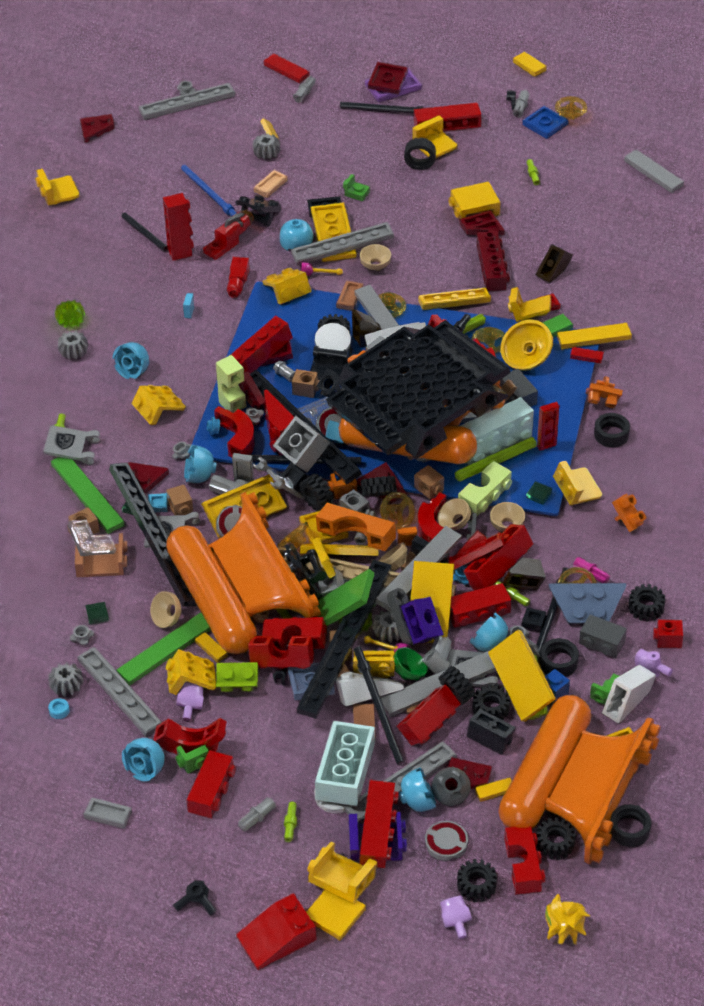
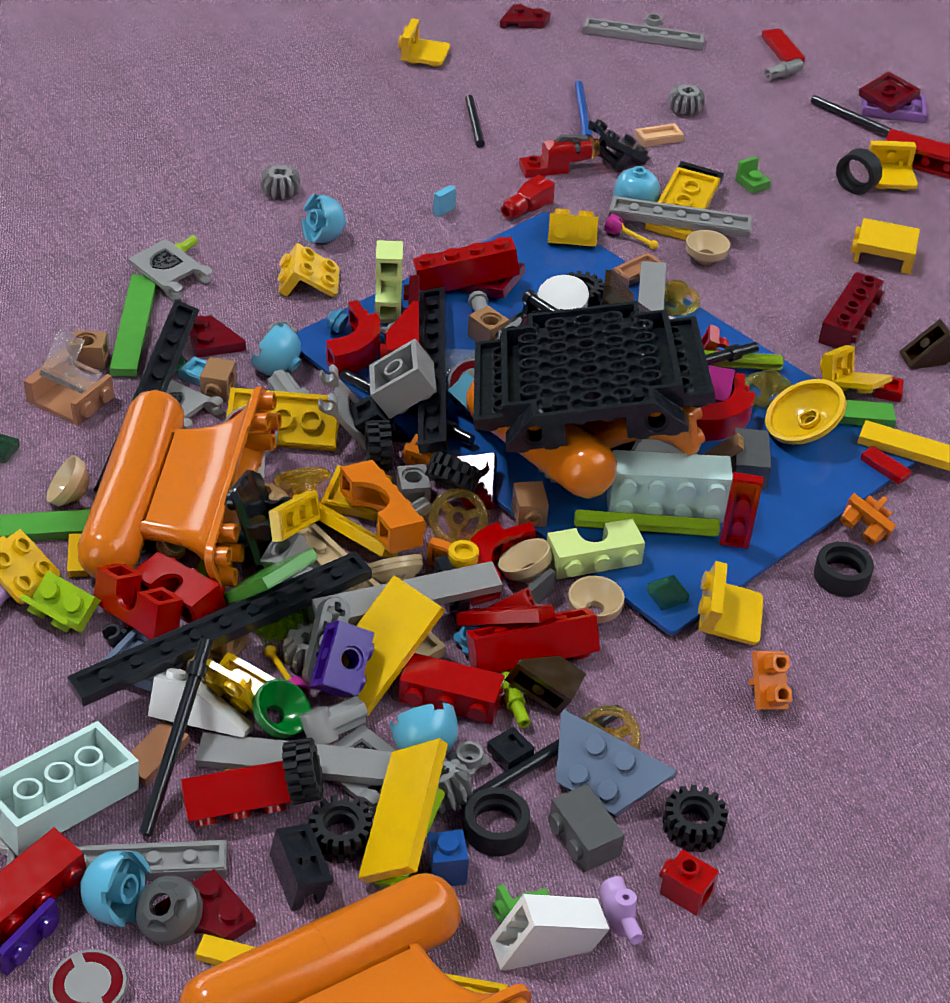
camera: 30 degrees right, 5 degrees down
(69, 313) = (310, 153): clear neon green gear -> none
(178, 226) = (496, 114): red brick -> none
(243, 467) = (314, 364): light grey tile -> none
(268, 127) = (708, 86): yellow piece -> none
(424, 530) = (463, 553): none -> yellow tile
(454, 298) = (766, 328): yellow tile -> none
(481, 223) = (881, 268): dark red wing -> none
(599, 575) = (652, 729): dark pink axle -> none

